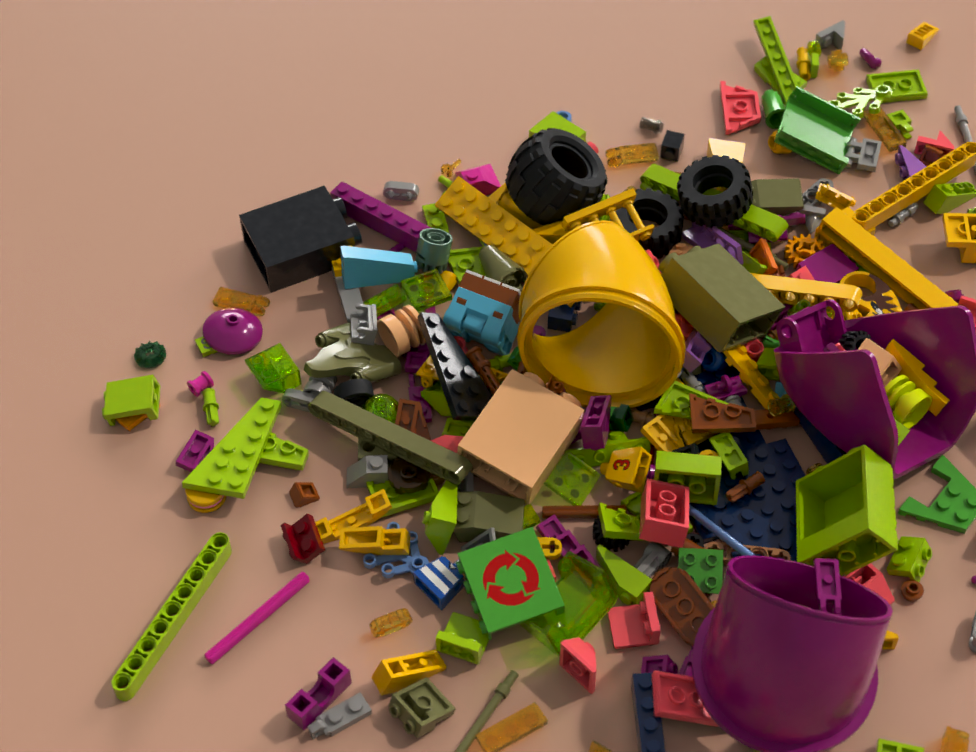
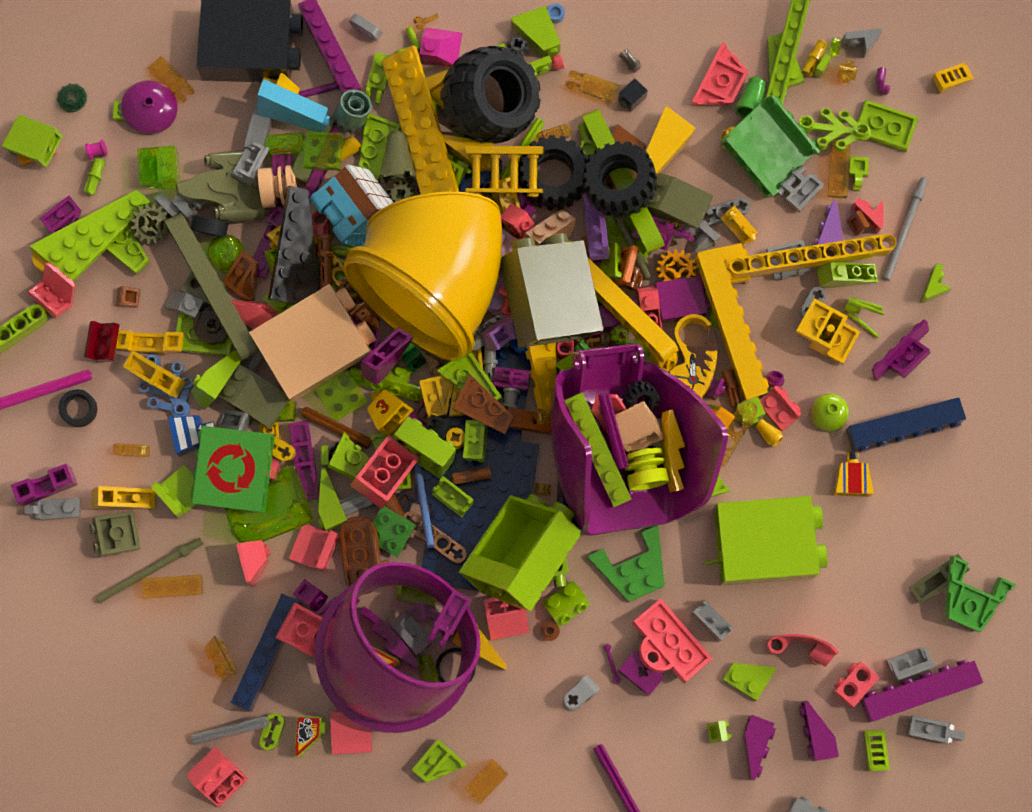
camera: 25 degrees right, 25 degrees up
(228, 512) = (54, 291): none -> coral bracket
(291, 418) = (155, 230): none -> olive gear
(306, 596) = (70, 395): none -> black tyre
(591, 538) = (325, 456): none -> lime tile
(740, 511) = (452, 497): none -> lime hinge
(935, 230) = (810, 297): none -> light grey beam

